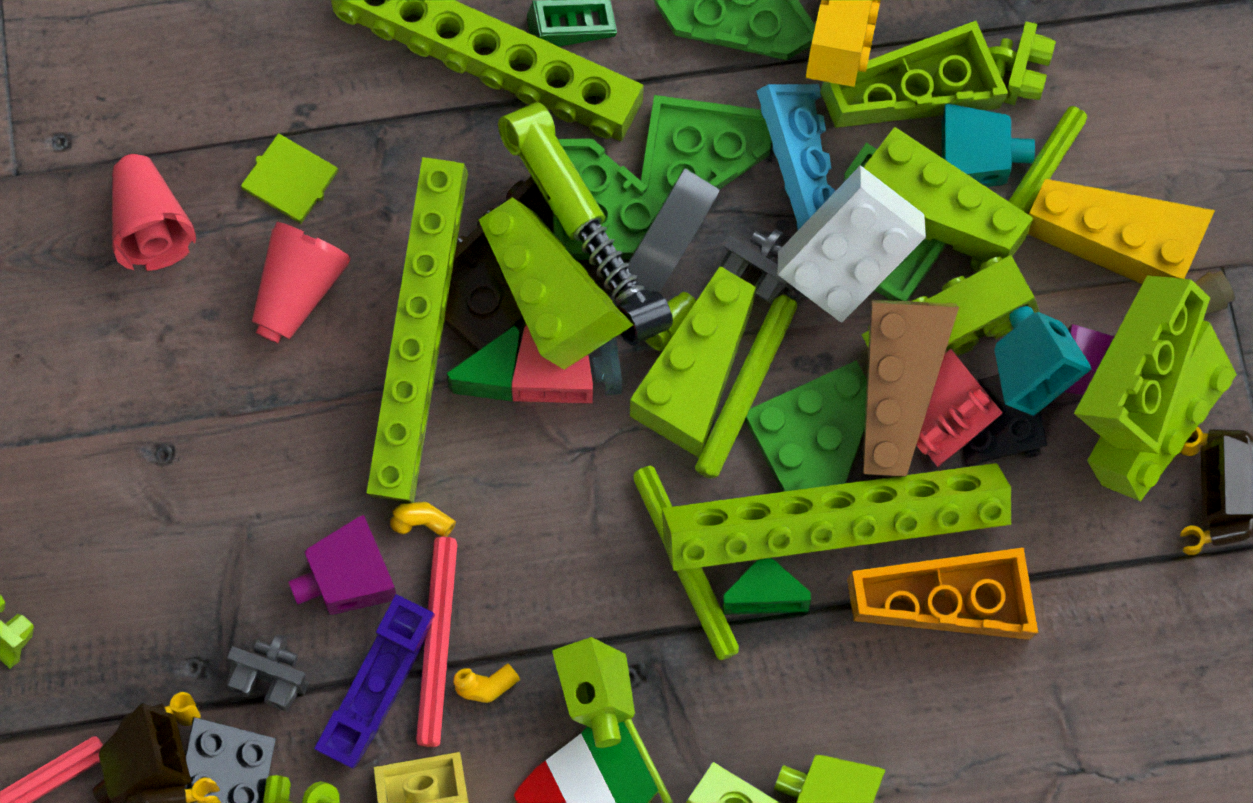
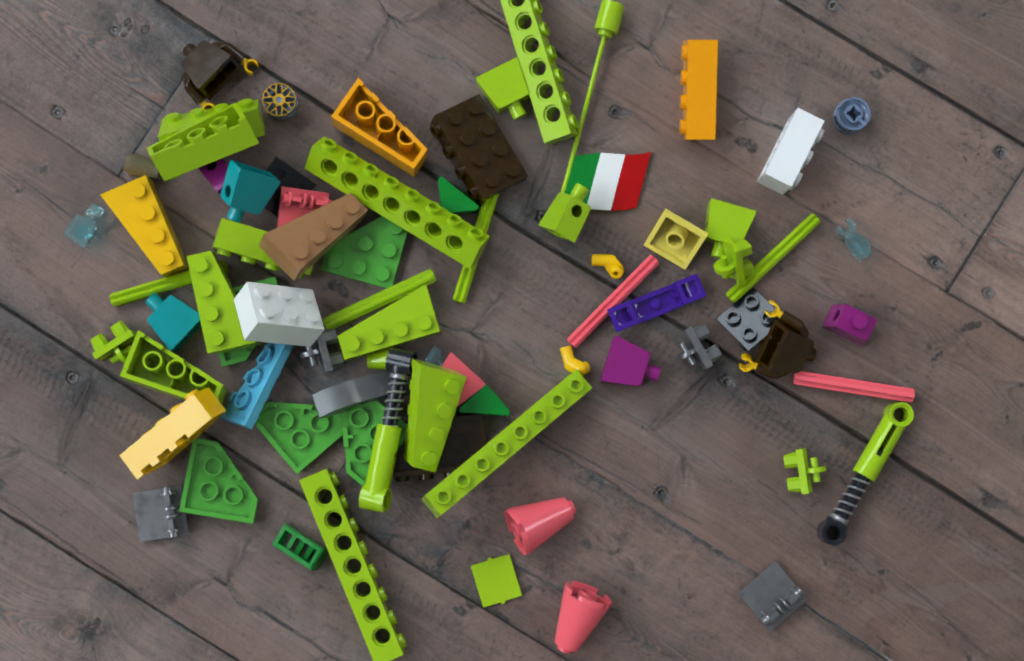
camera: 140 degrees left, 15 degrees up
(795, 686) = (477, 149): none -> dark brown bracket
(1111, 527) = (280, 101): none -> wheel
(1199, 164) = (83, 228): none -> clear light blue plate

